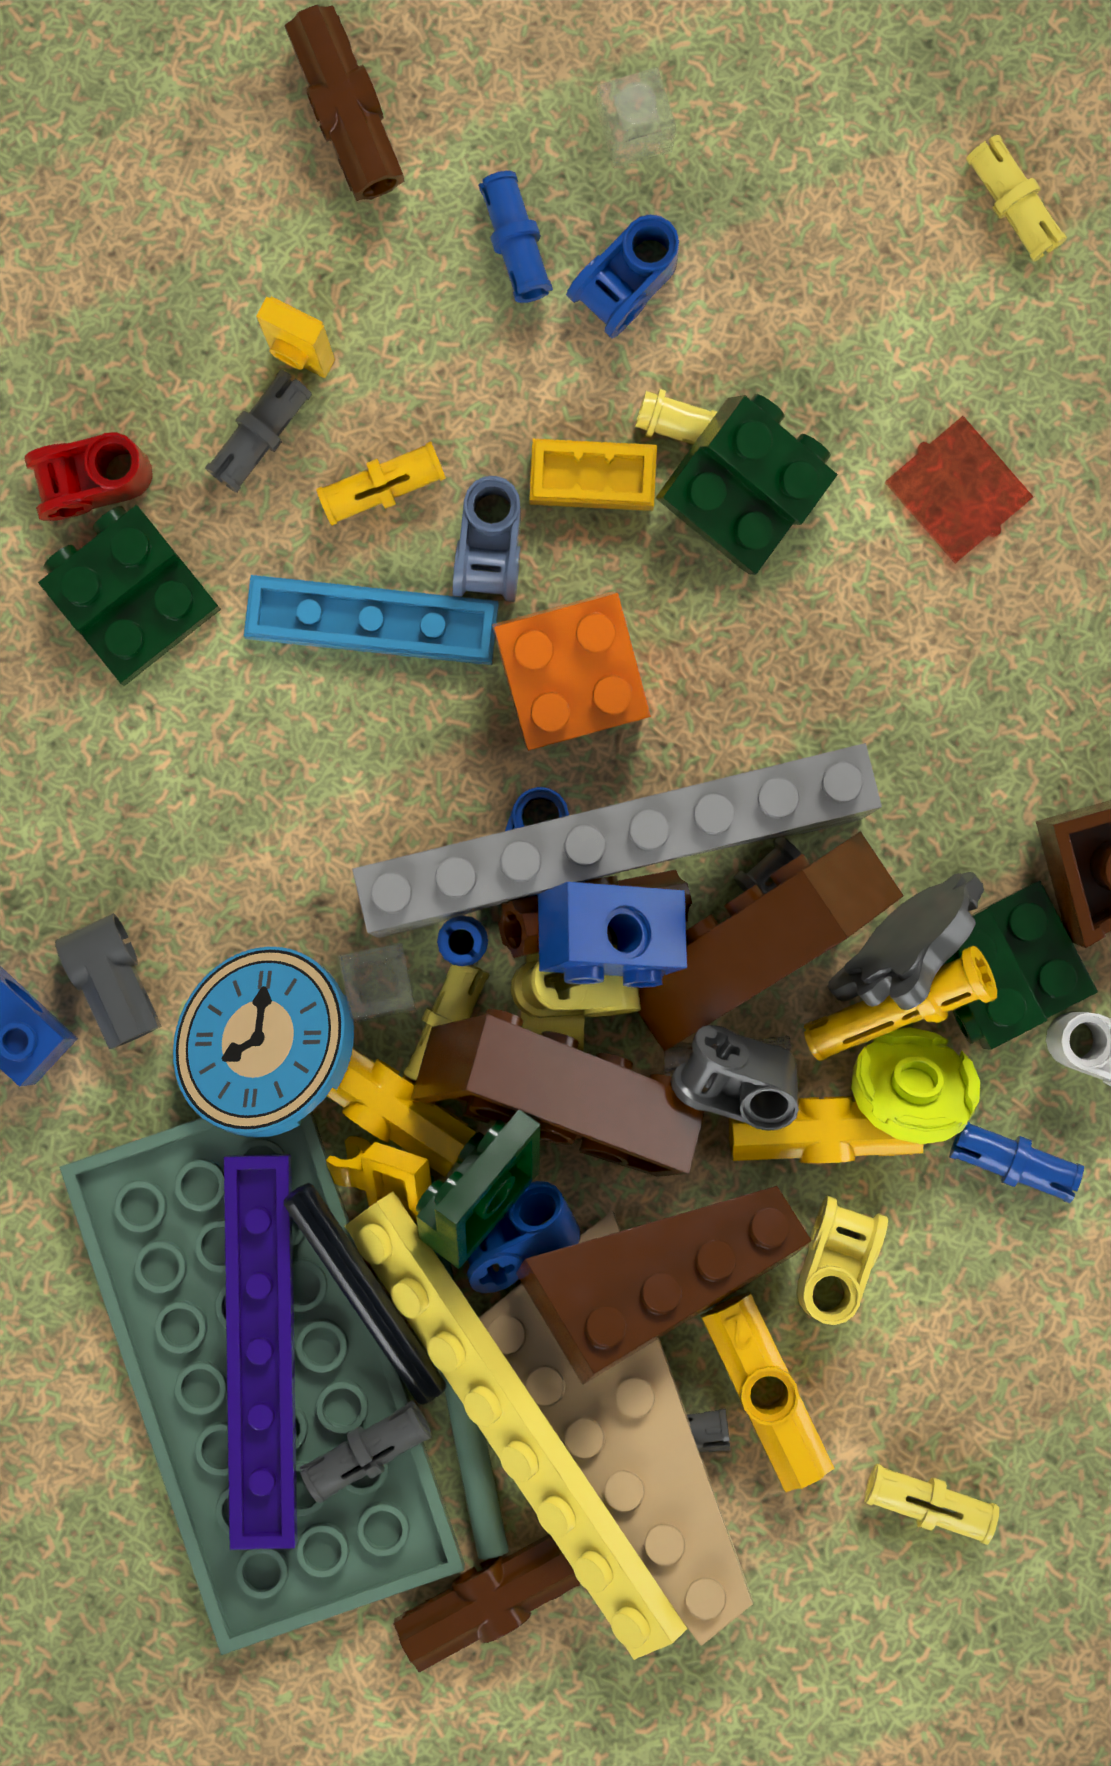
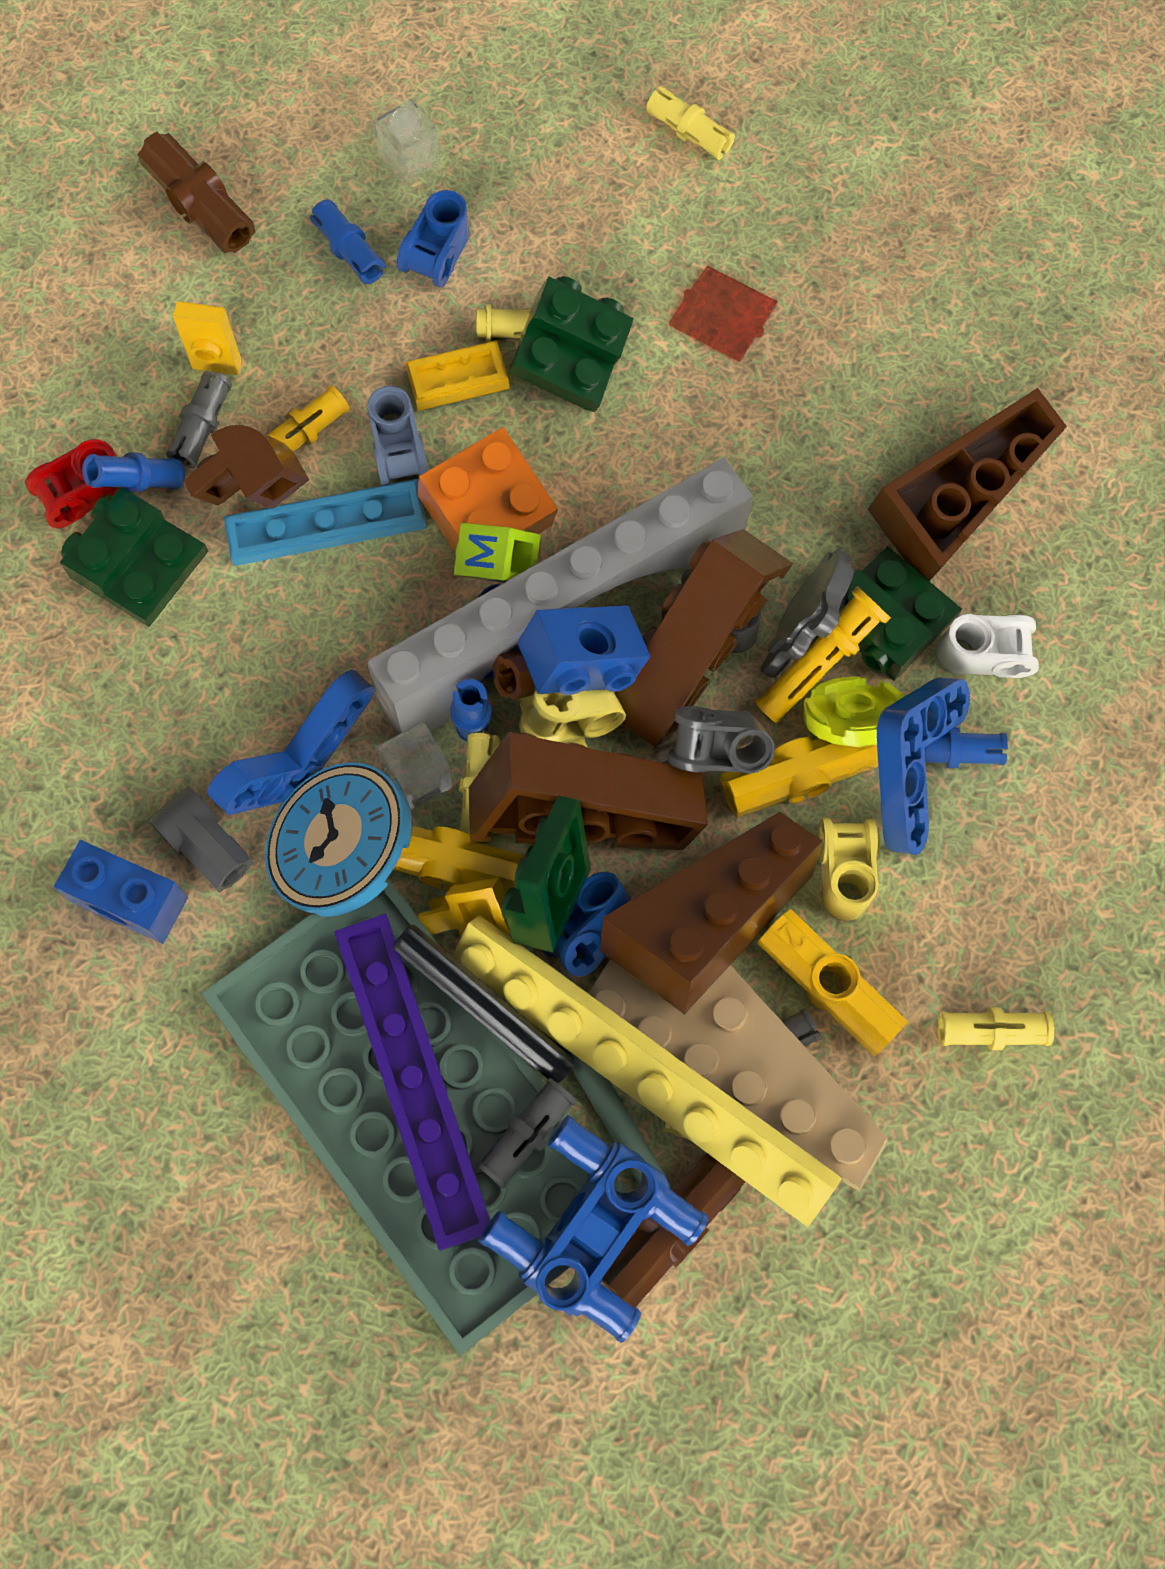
camera: 20 degrees left, 15 degrees down
(156, 493) = (133, 472): none -> blue pin
(241, 932) = (273, 776): none -> blue beam
(304, 524) = (250, 462): none -> reddish brown brick
(401, 1587) = (593, 1229): none -> blue piece
(551, 768) = (494, 552): none -> lime brick
(950, 1154) = (901, 739): none -> blue beam

